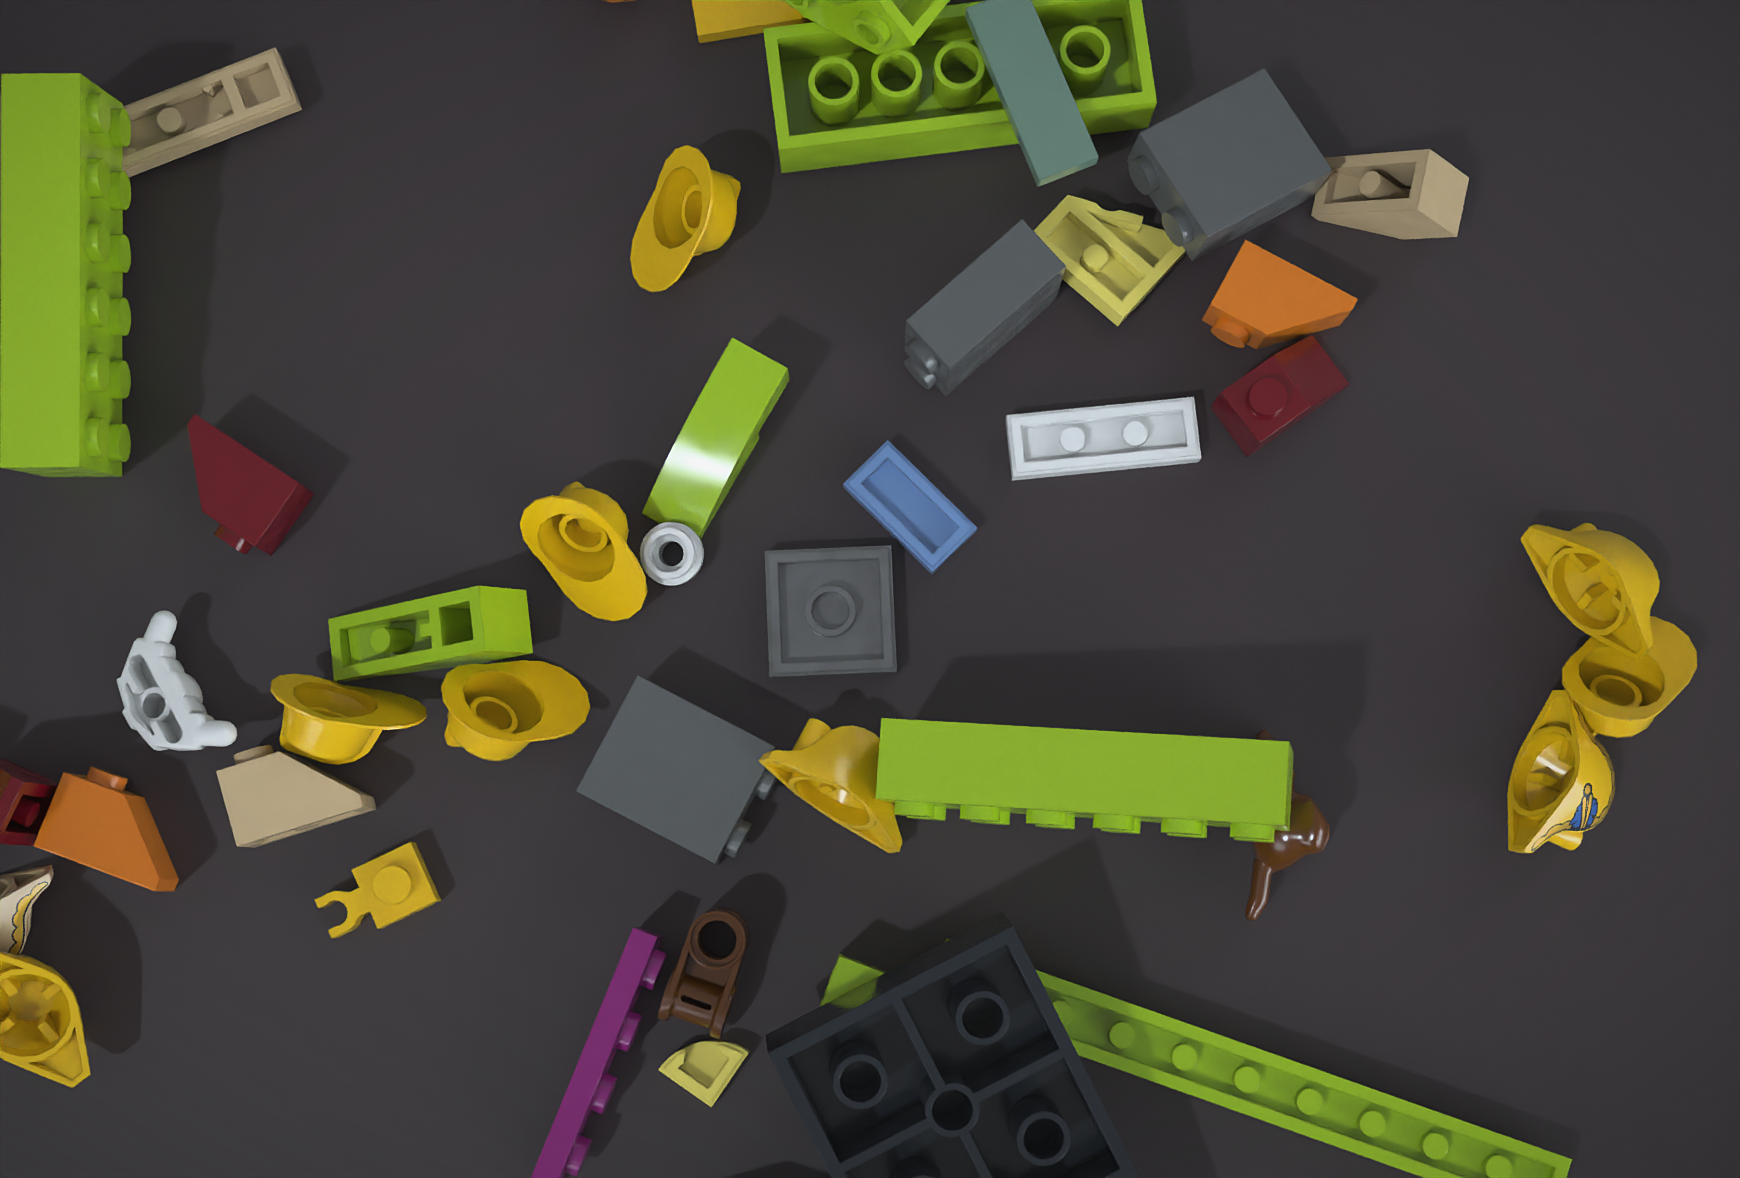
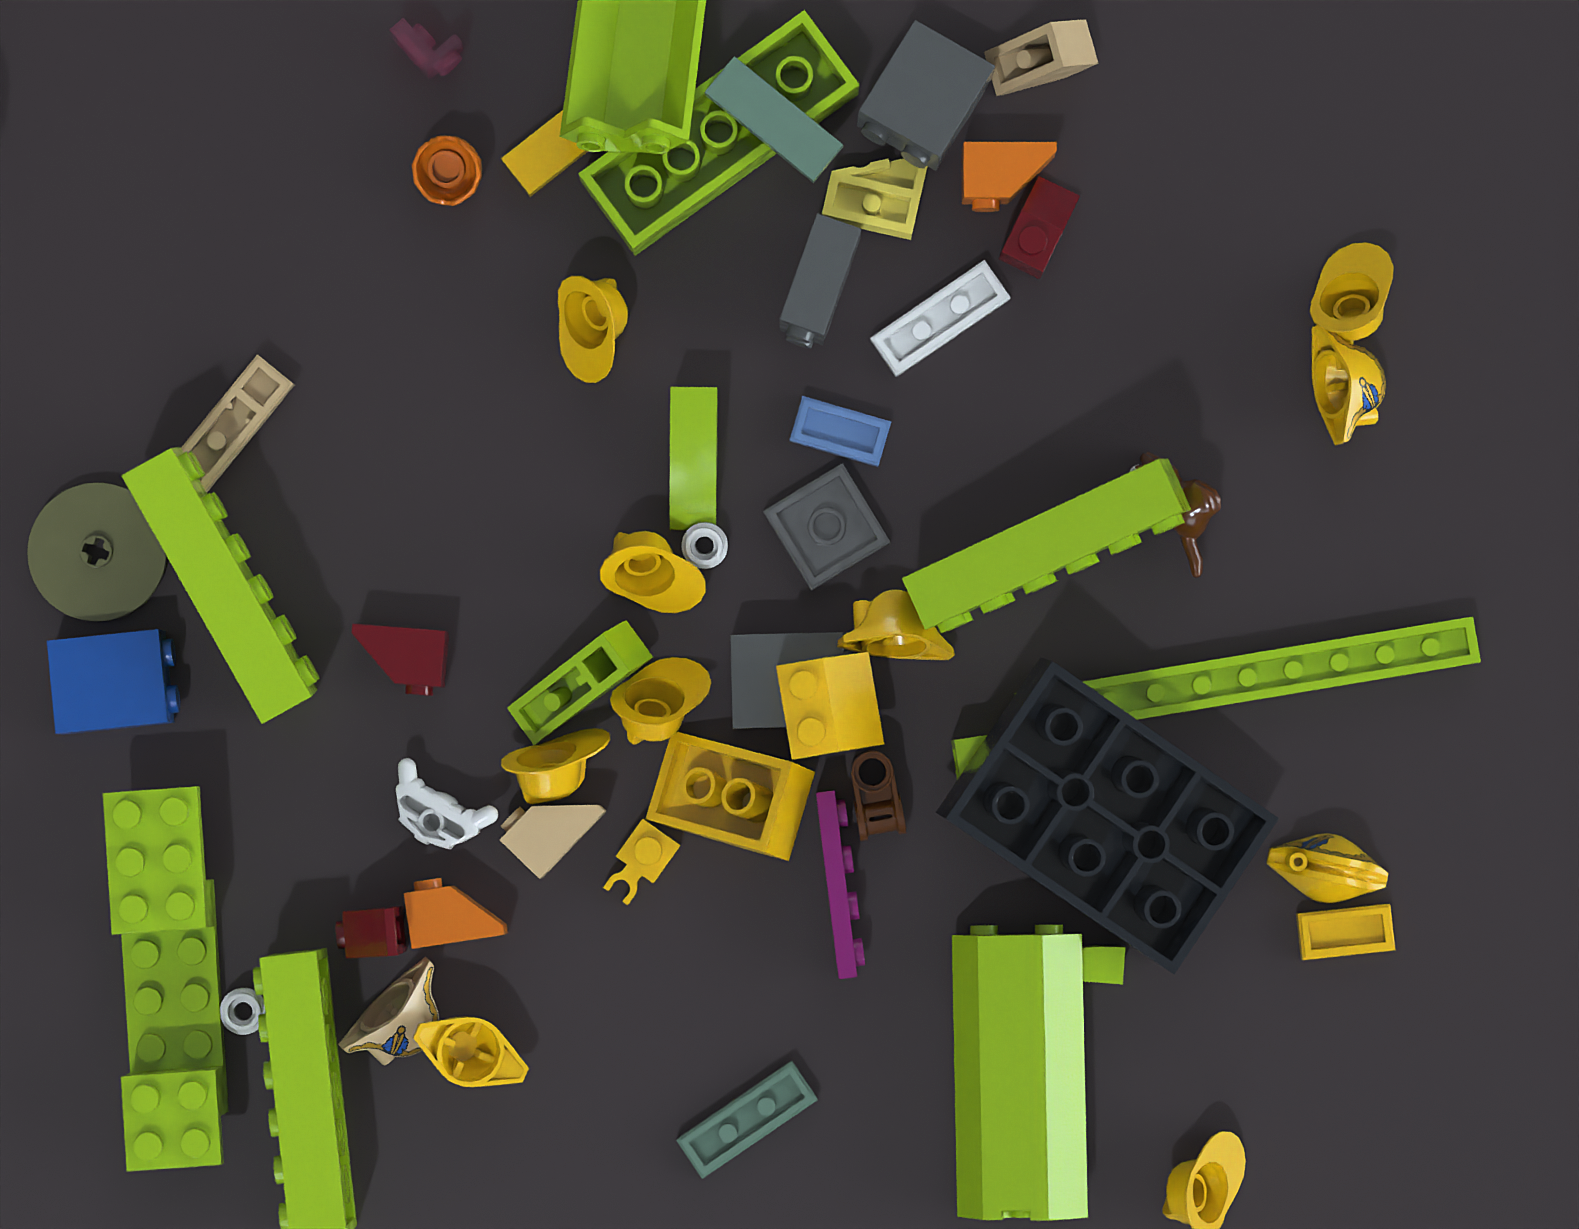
camera: 30 degrees left, 5 degrees up
(531, 874) = (730, 795): none -> yellow slope
(705, 827) = (829, 705): none -> yellow slope
(705, 1067) = (906, 856): light yellow tile -> none
(1597, 583) = (1305, 241): yellow hat -> none

